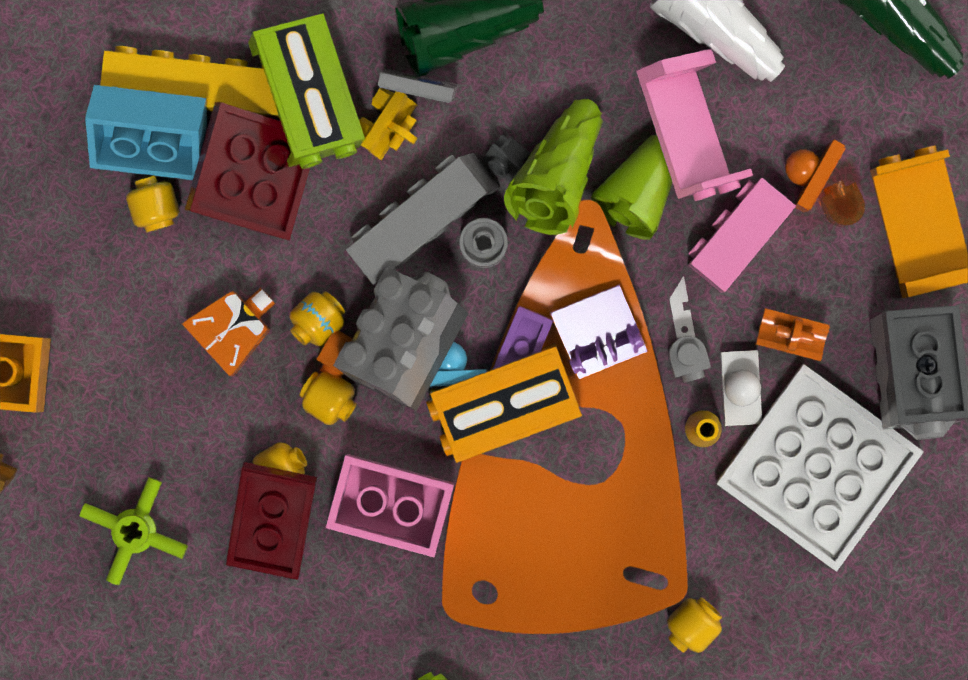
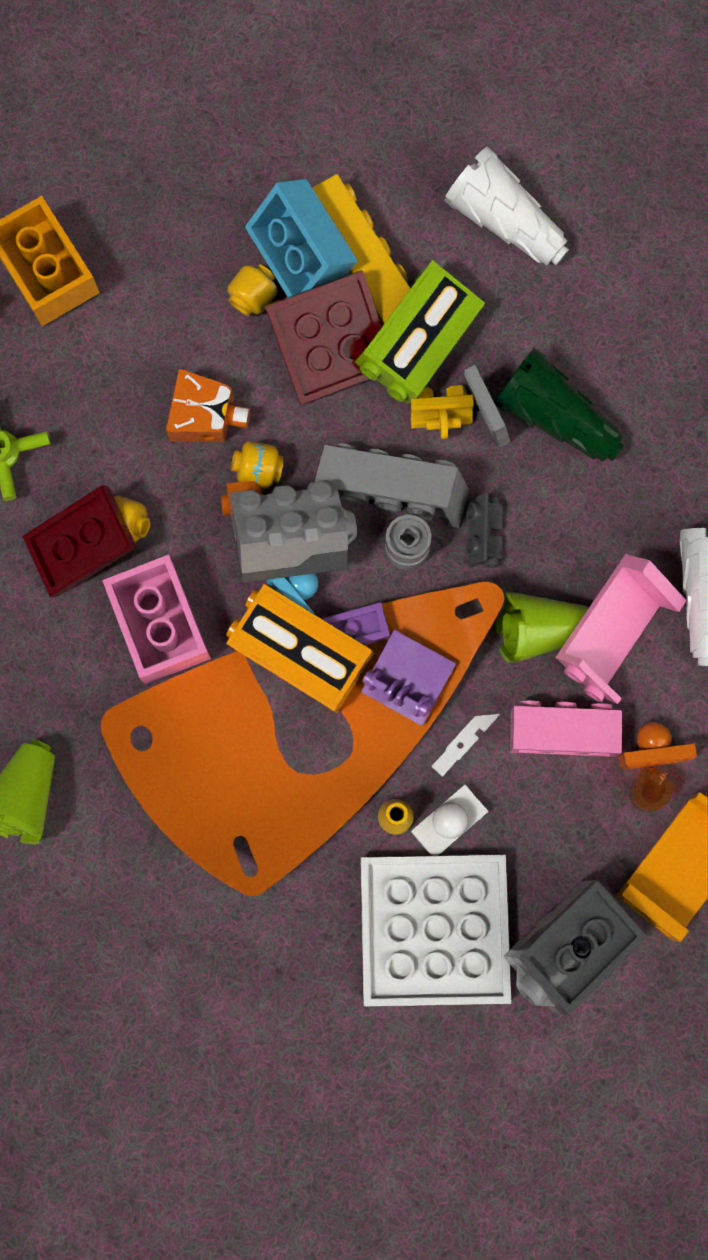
camera: 50 degrees right, 10 degrees down
(328, 398) = (204, 516): yellow head -> none
(555, 173) = (500, 550): lime cone -> none
(688, 358) = (440, 762): light grey plate -> none
(694, 625) = (236, 924): yellow head -> none
(792, 334) = (521, 827): orange hips -> none

